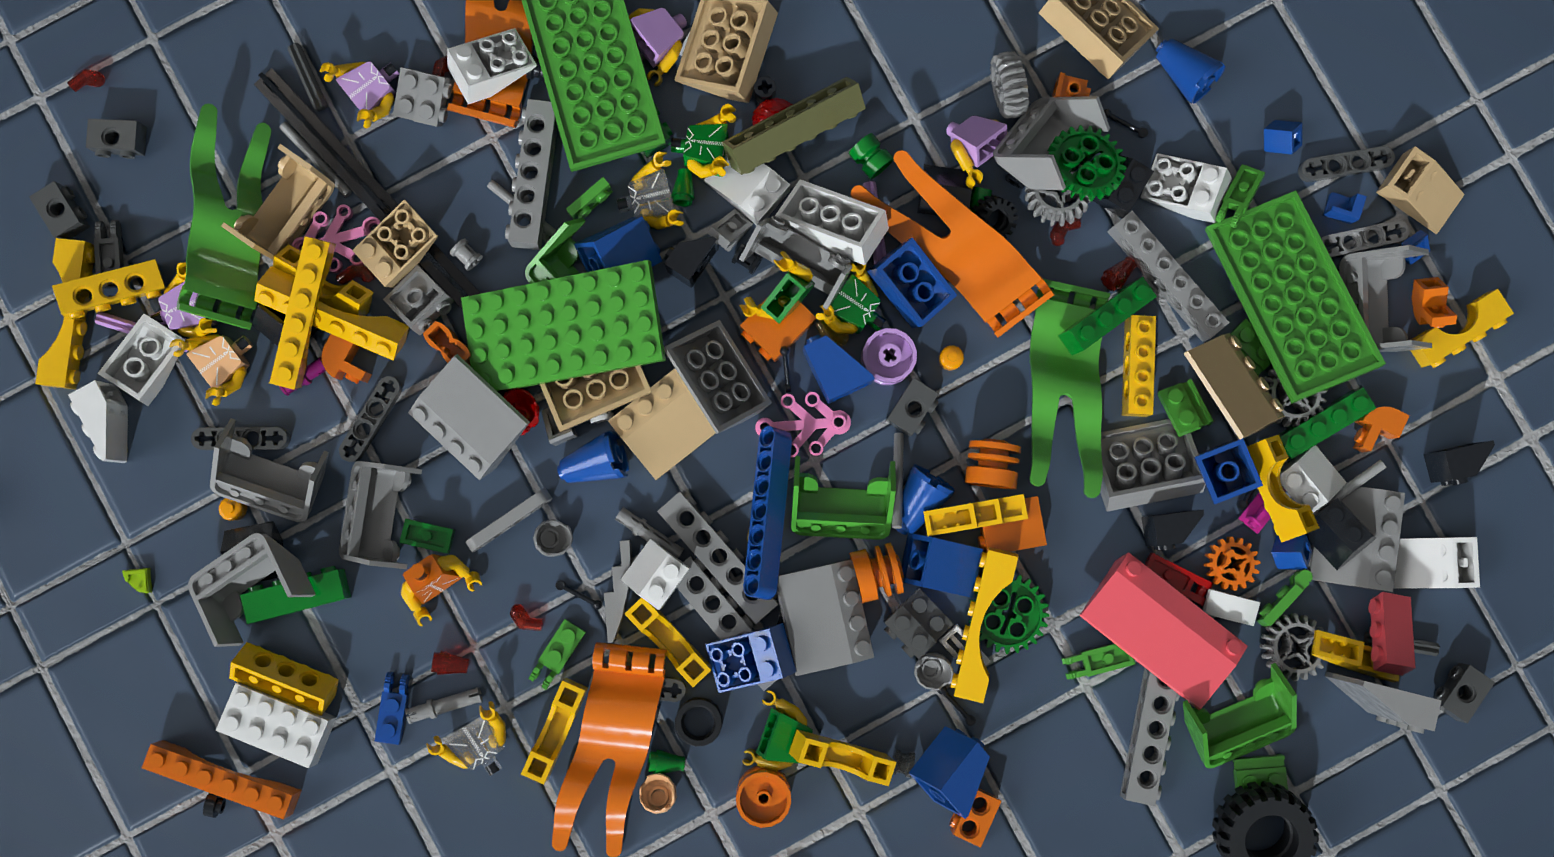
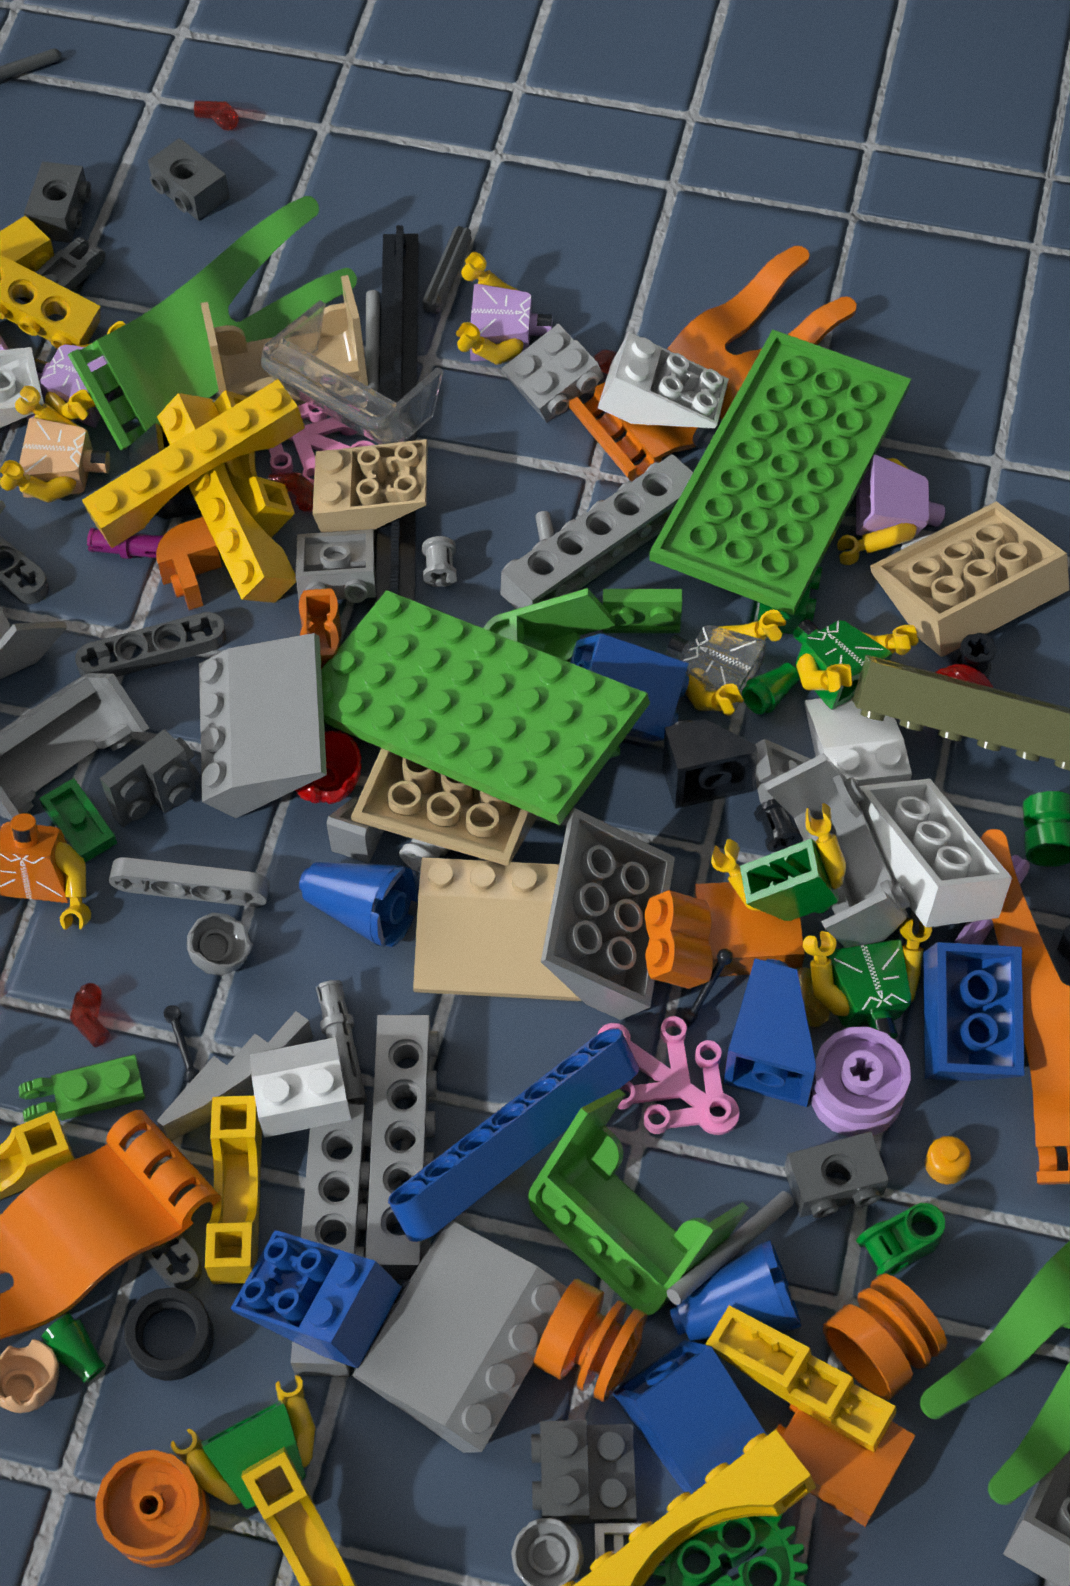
camera: 45 degrees right, 25 degrees down
(307, 221) = (337, 394): none -> clear windscreen
(445, 481) = (151, 775): none -> dark grey plate
(758, 361) = (678, 939): none -> orange brick
(962, 413) = (895, 1243): none -> green piece

